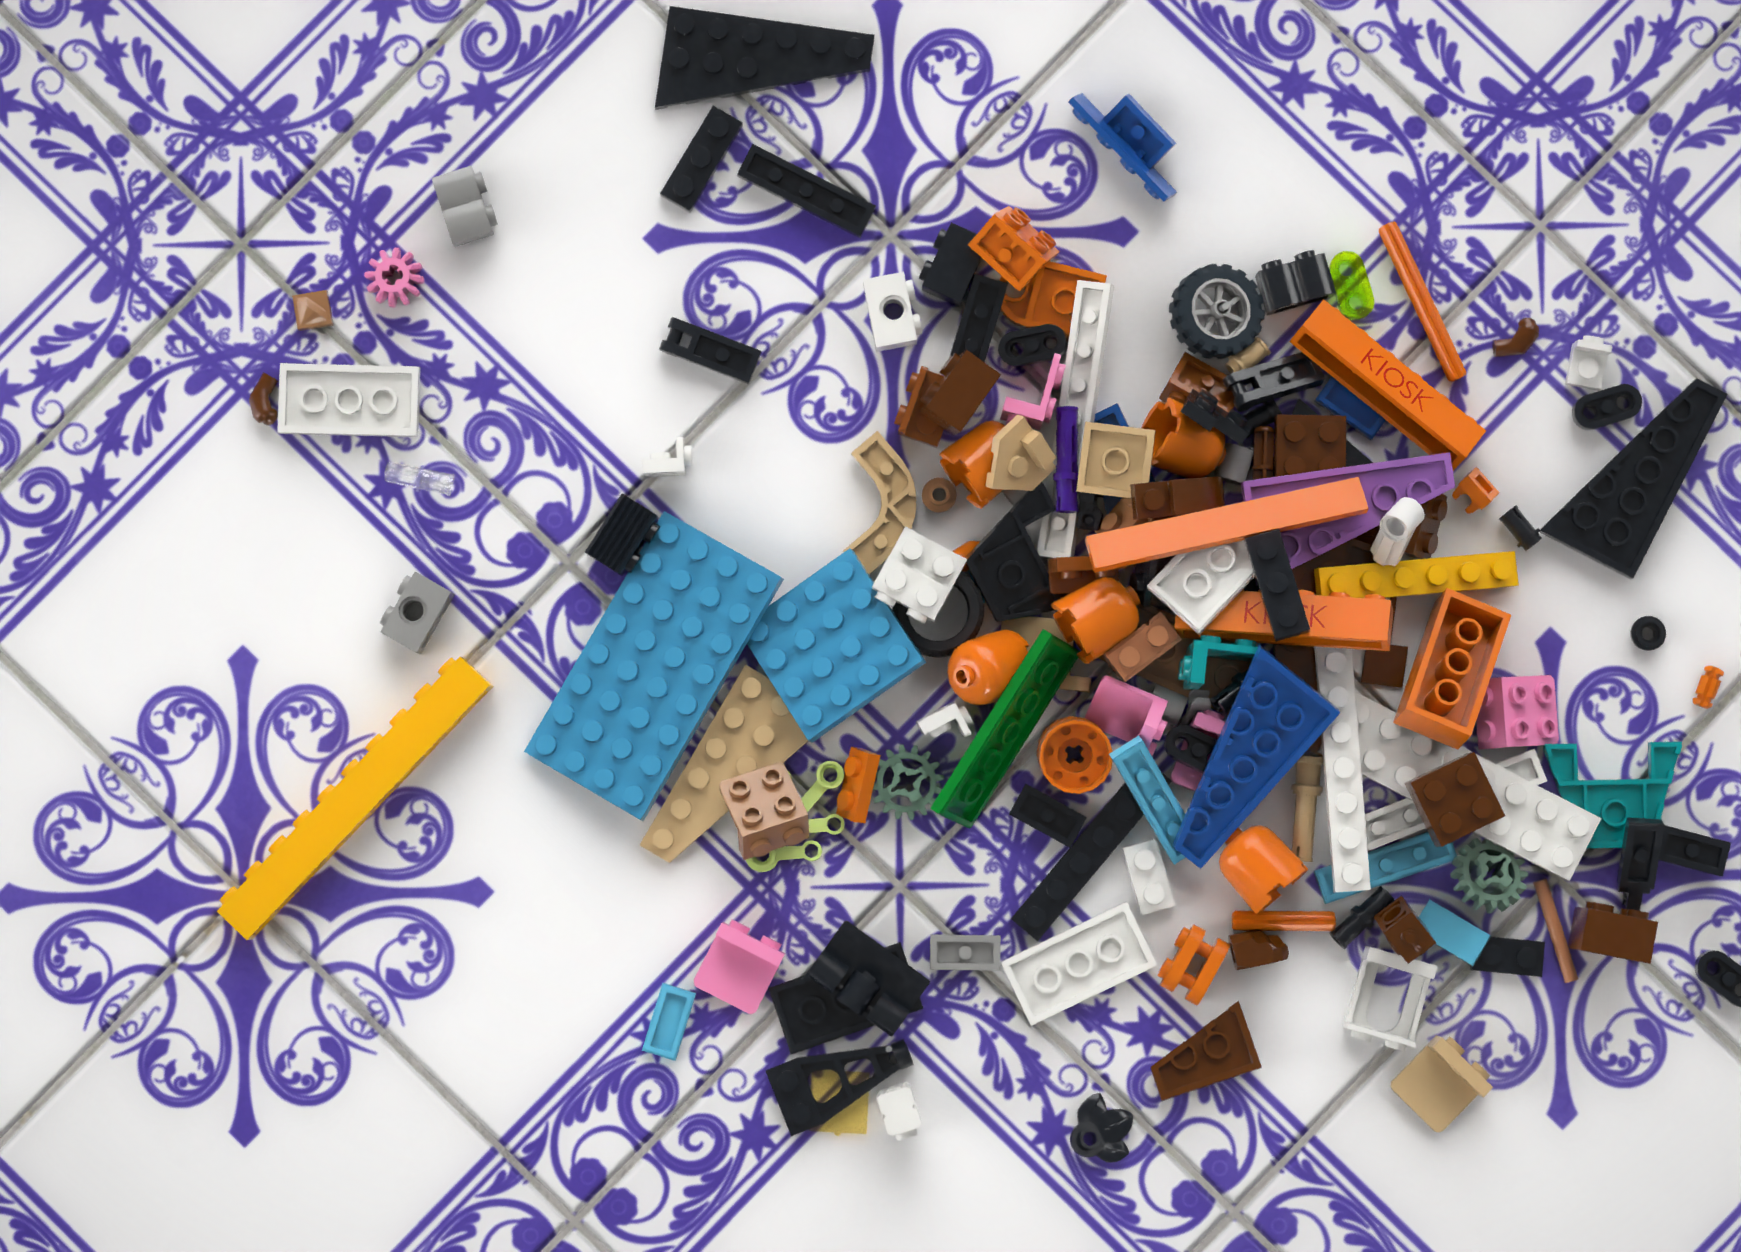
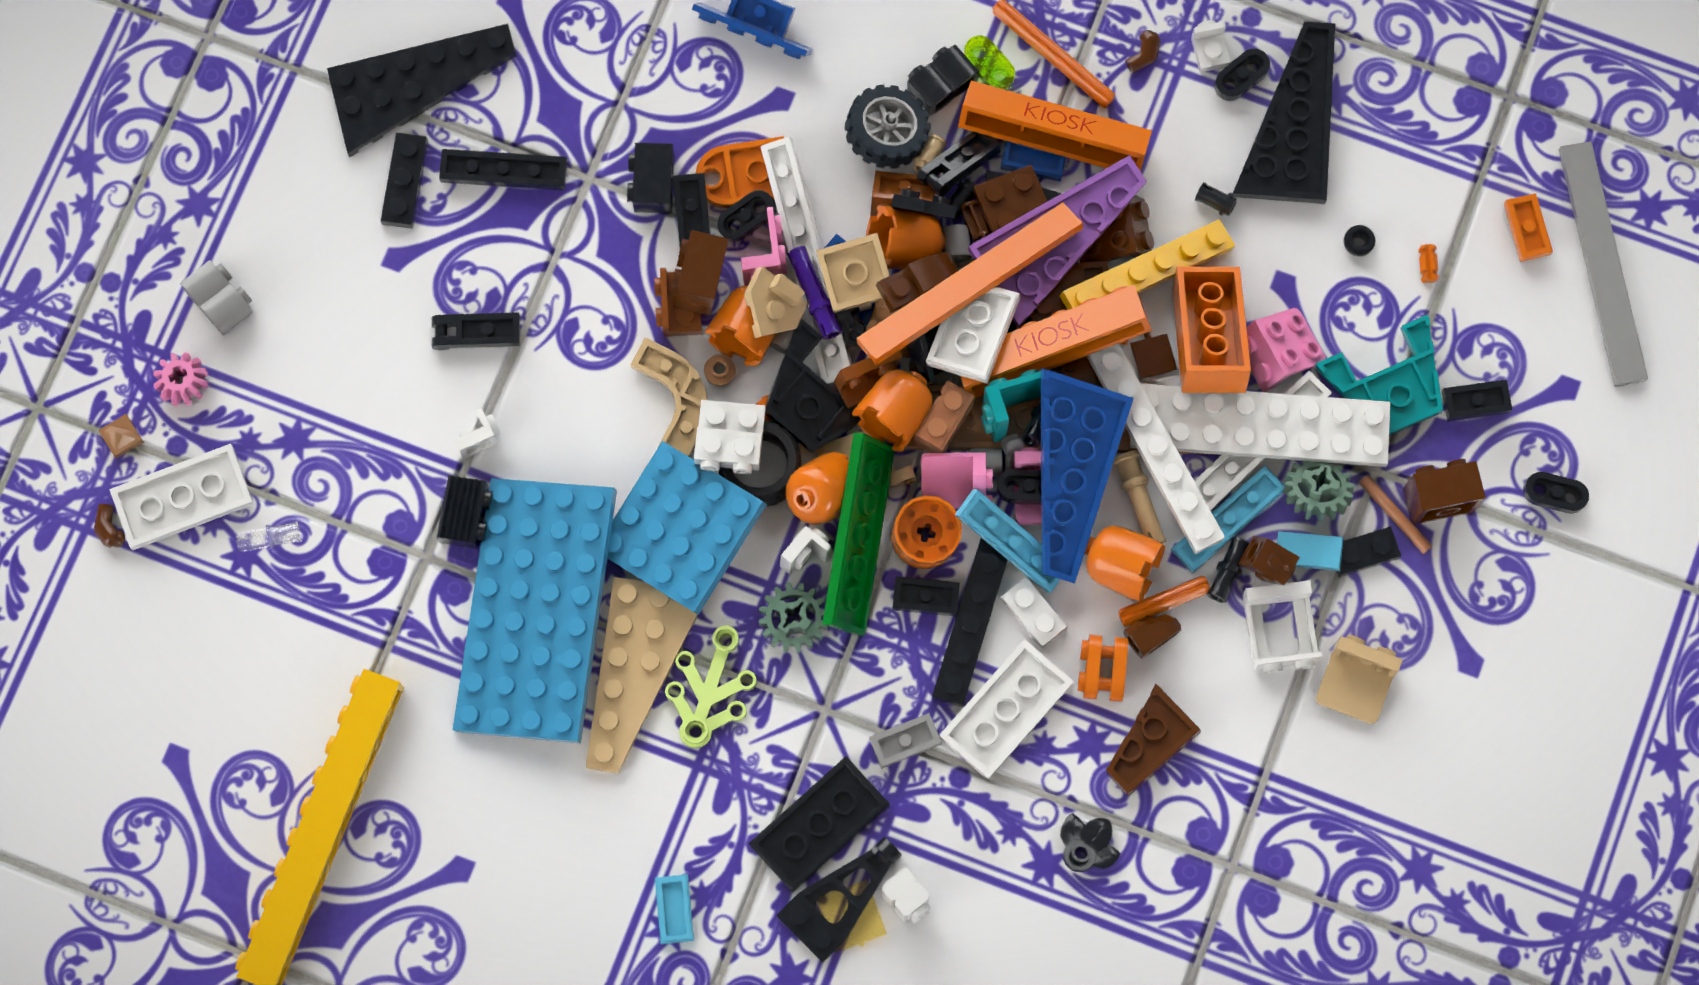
camera: 25 degrees left, 10 degrees down
(416, 633) = (318, 667): light grey brick -> none
(739, 966) = (715, 833): bright pink bracket -> none
(765, 810) = (683, 689): medium nougat bracket -> none
(857, 784) = (752, 636): orange plate -> none
(868, 978) = (831, 795): black panel -> none
(886, 332) = (620, 254): white brick -> none
(1014, 246) = (695, 142): orange bracket -> none
(1277, 585) = (1034, 312): black plate -> none
(1396, 531) = (1114, 235): white piece -> none
(1454, 799) = (1261, 432): reddish brown brick -> none
(1477, 488) = (1166, 181): orange tile -> none
(1639, 859) = (1437, 422): black hinge -> none

